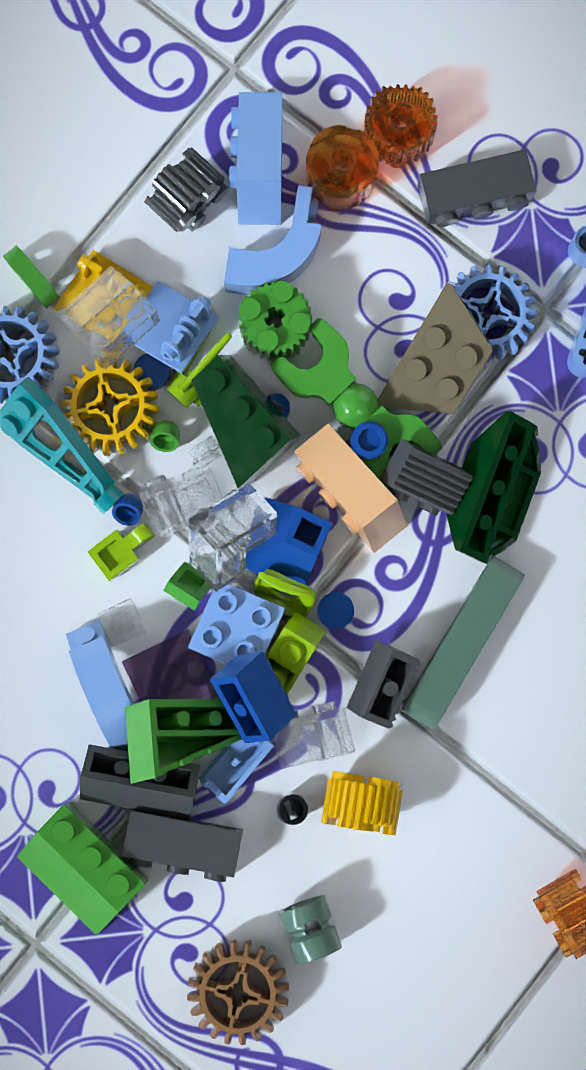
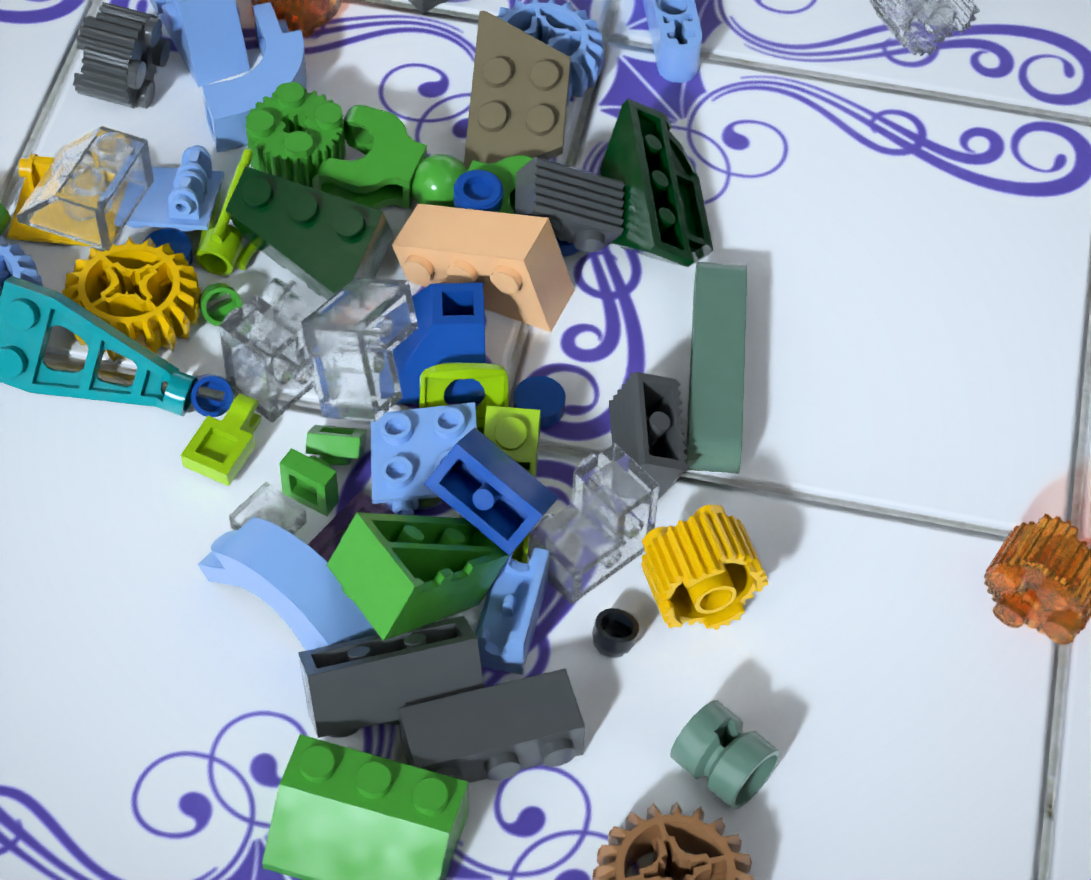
camera: 30 degrees left, 30 degrees down
(160, 608) = (309, 481): none -> bright green plate

